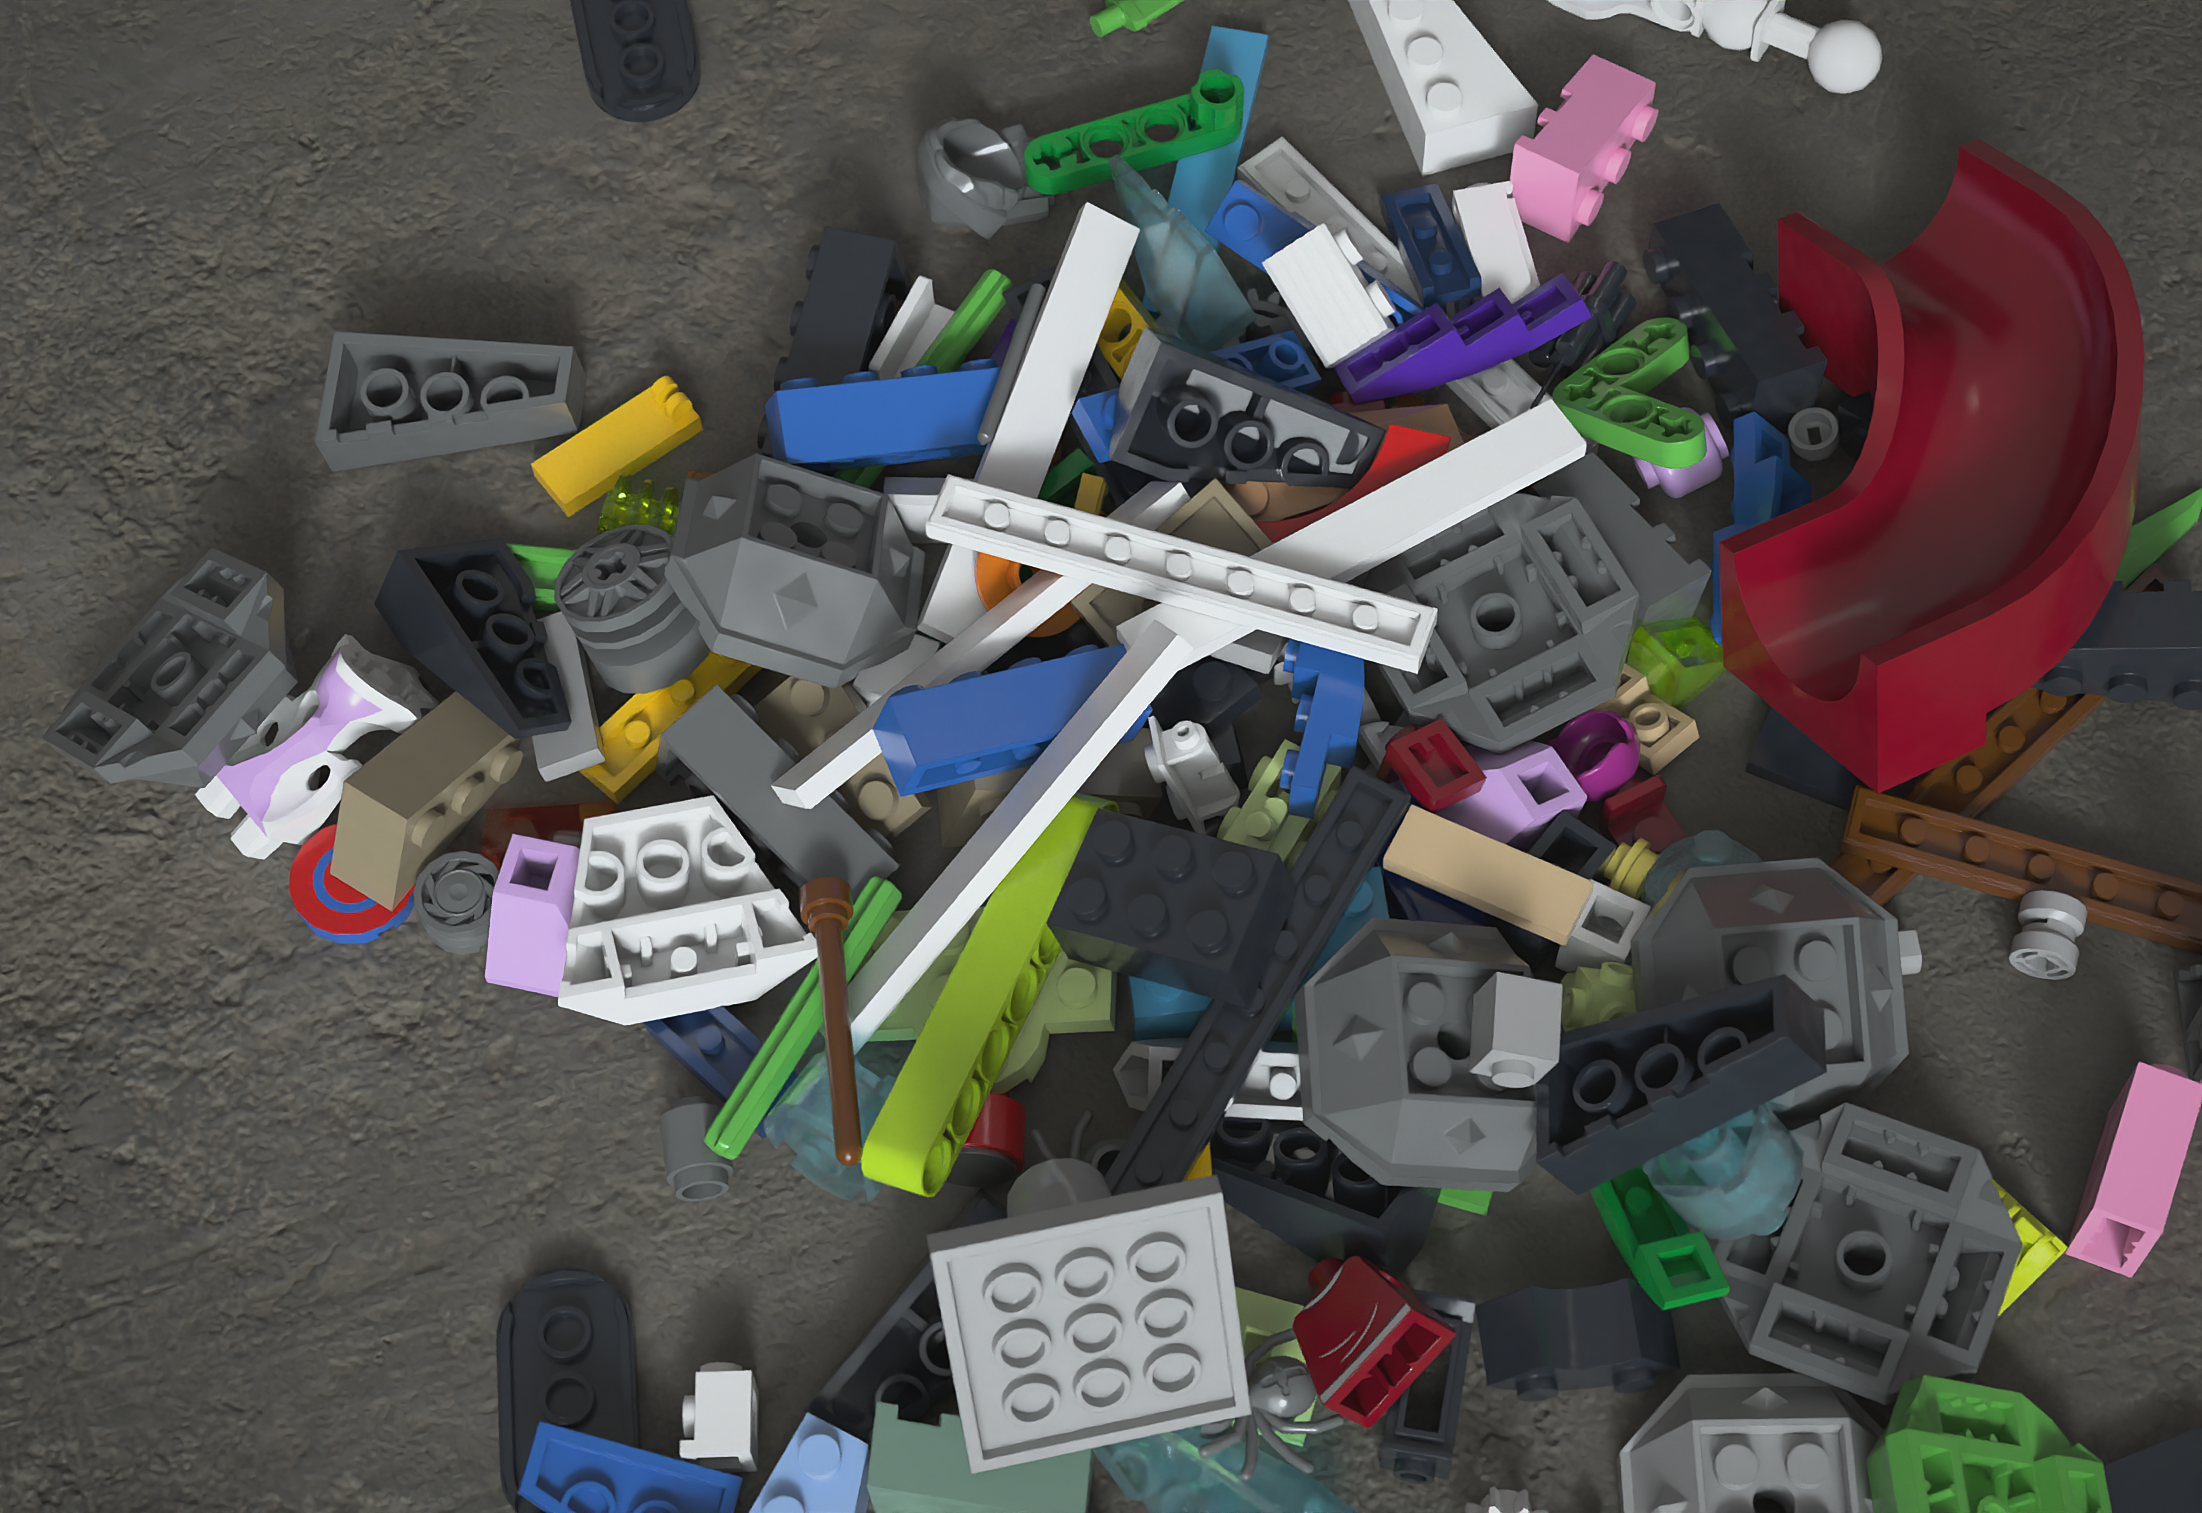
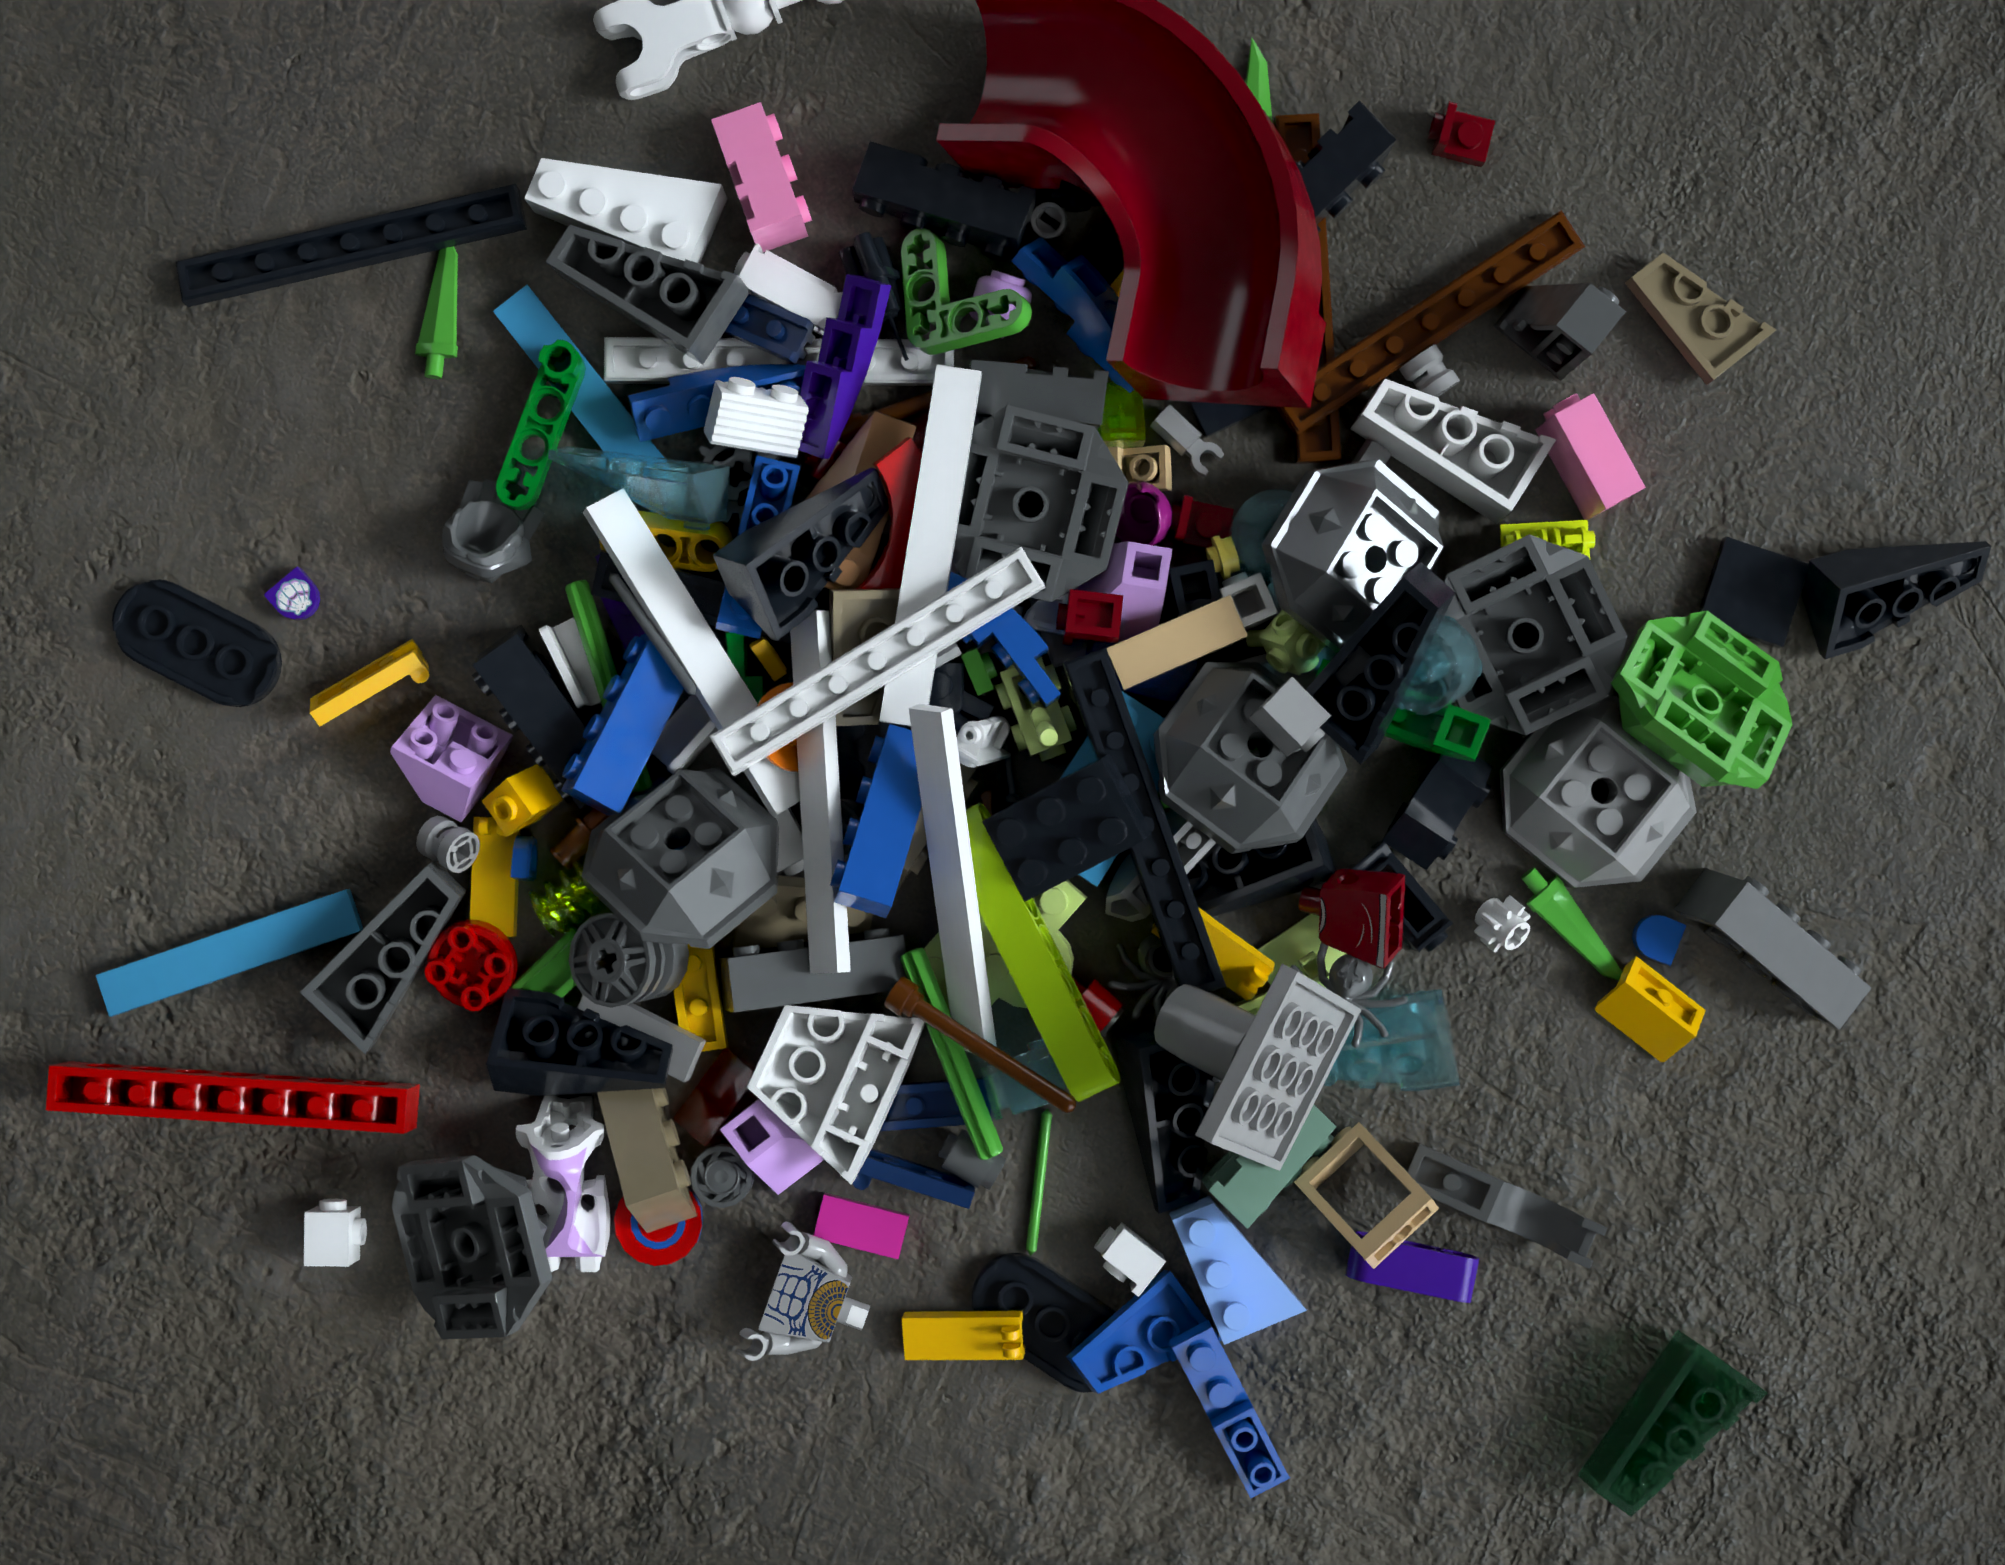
camera: 55 degrees left, 25 degrees up
(83, 569) = (333, 1234): none -> white brick
(171, 373) = (232, 1097): none -> red brick
(317, 264) = (229, 952): none -> dark azure tile
(383, 1092) = (805, 1299): none -> light grey torso
(472, 1302) = (963, 1335): none -> yellow hinge
(500, 486) = (472, 964): none -> red tile
(519, 1097) = (861, 1225): none -> dark pink tile
(599, 1045) = (915, 1178): none -> dark blue hinge
(611, 354) = (450, 845): none -> light grey wheel
(659, 453) = (524, 858): none -> blue tile
(710, 308) = (450, 756): none -> lavender slope
(722, 398) = (522, 799): none -> yellow brick
(730, 1255) = (1038, 1183): none -> bright green axle
(759, 69) = (295, 595): none -> tile
(779, 200) = (369, 680): none -> yellow hinge
(1267, 725) = (979, 669): none -> bright green plate
(1373, 135) = (660, 293): none -> dark grey wedge
(1722, 743) = (1184, 438): none -> light grey bar
(1995, 1020) = (1454, 447): none -> white wedge

